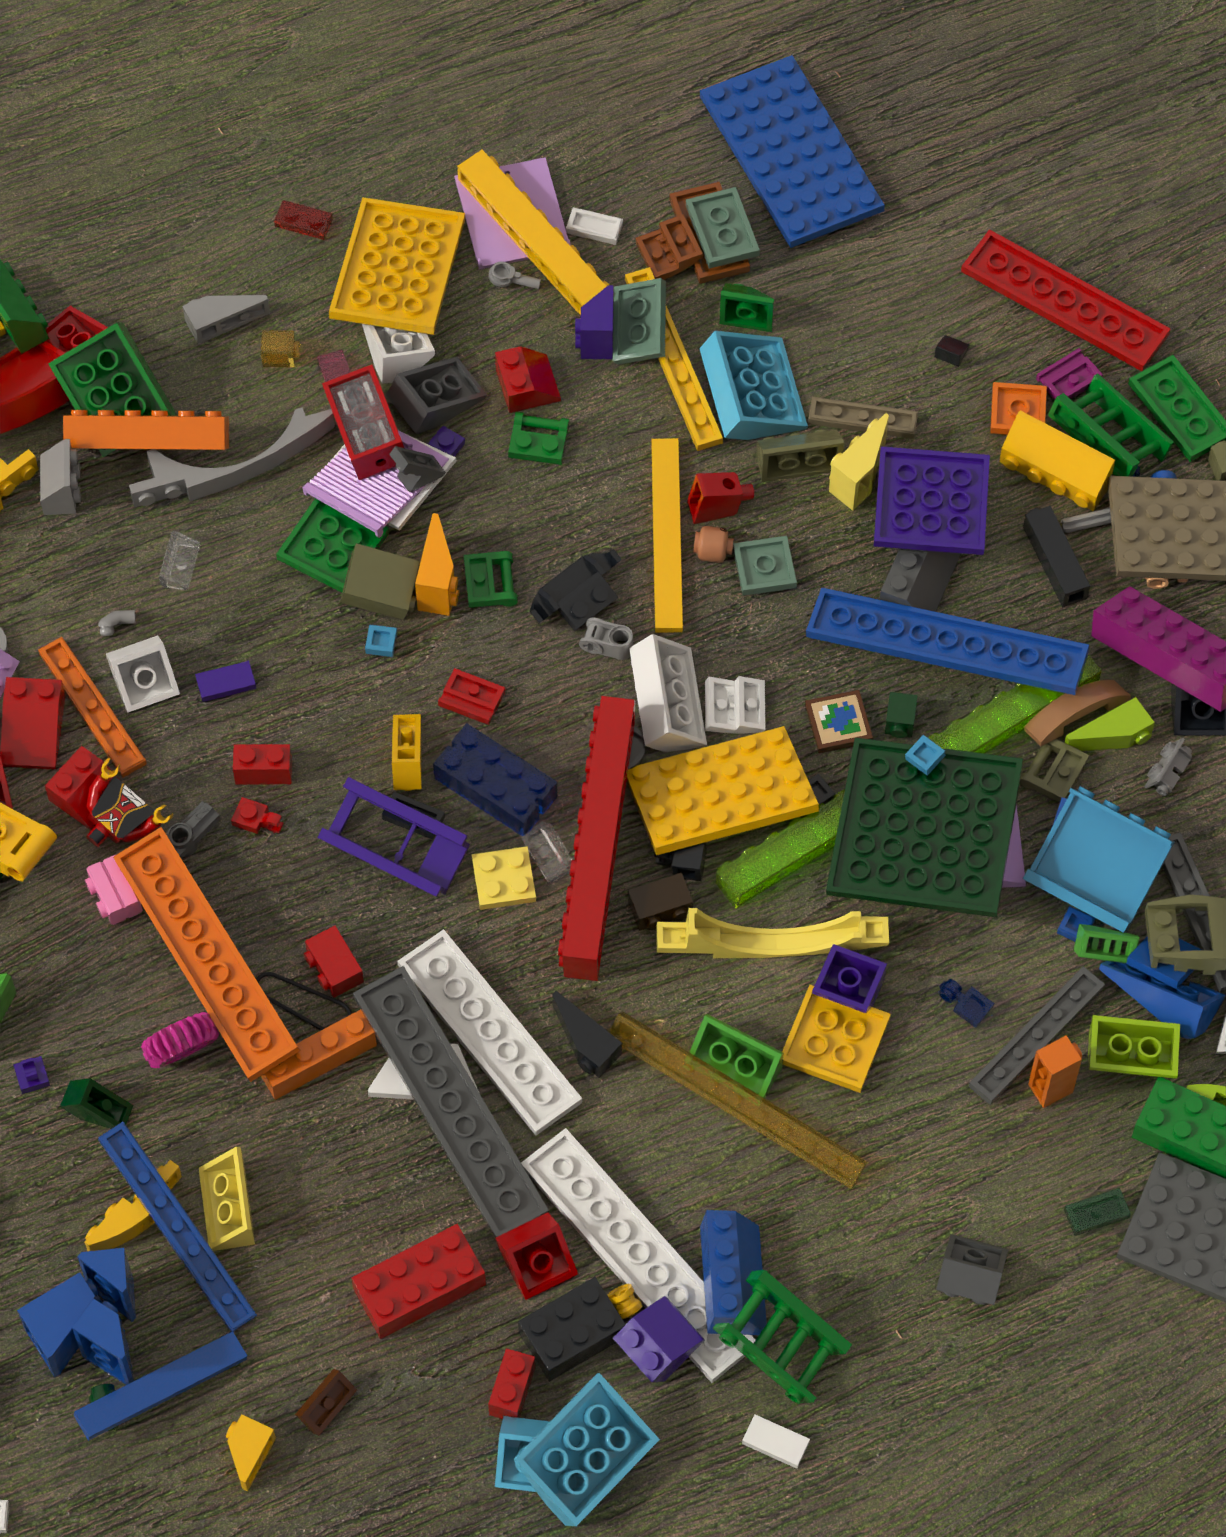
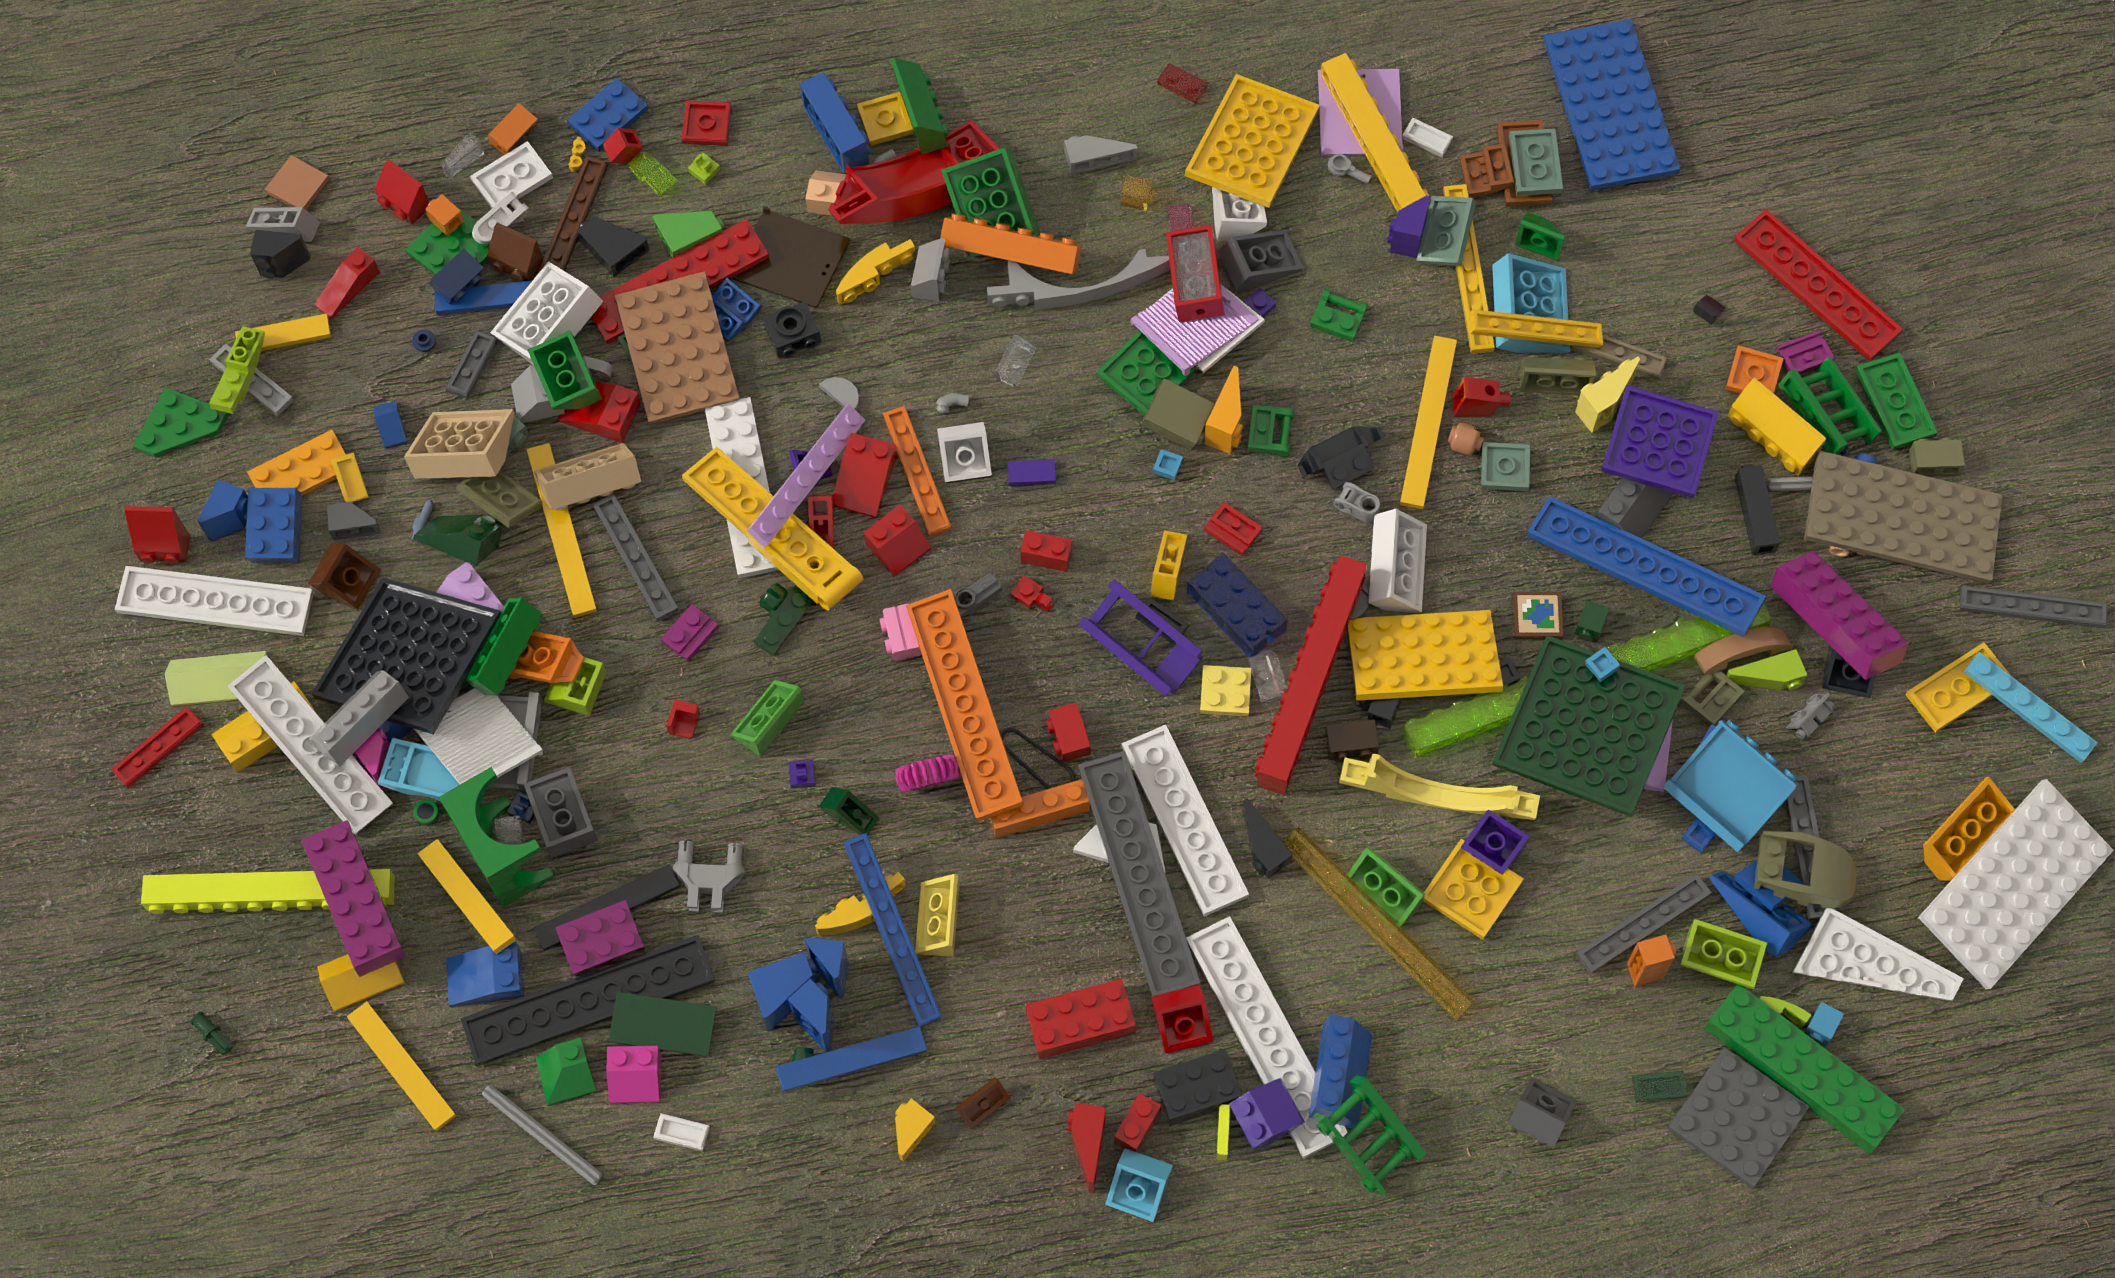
camera: 15 degrees right, 5 degrees up
(119, 811) = (919, 566): torso -> none
(416, 468) = (1228, 322): dark grey slope -> none
(455, 1405) = (1087, 1129): none -> red slope
(525, 378) = (1339, 261): red slope -> none
(585, 1451) = (1185, 1194): medium azure slope -> none
(612, 1366) = (1223, 1132): none -> neon yellow tile
(624, 1300) = (1246, 1074): yellow wheel -> none
(735, 705) = (1452, 583): white slope -> none
(764, 406) = (1535, 328): none -> yellow tile
(775, 1441) = (1345, 1219): white tile -> none
(971, 1006) = (1594, 886): clear blue plate -> none
(1095, 933) = (1723, 851): bright green slope -> none

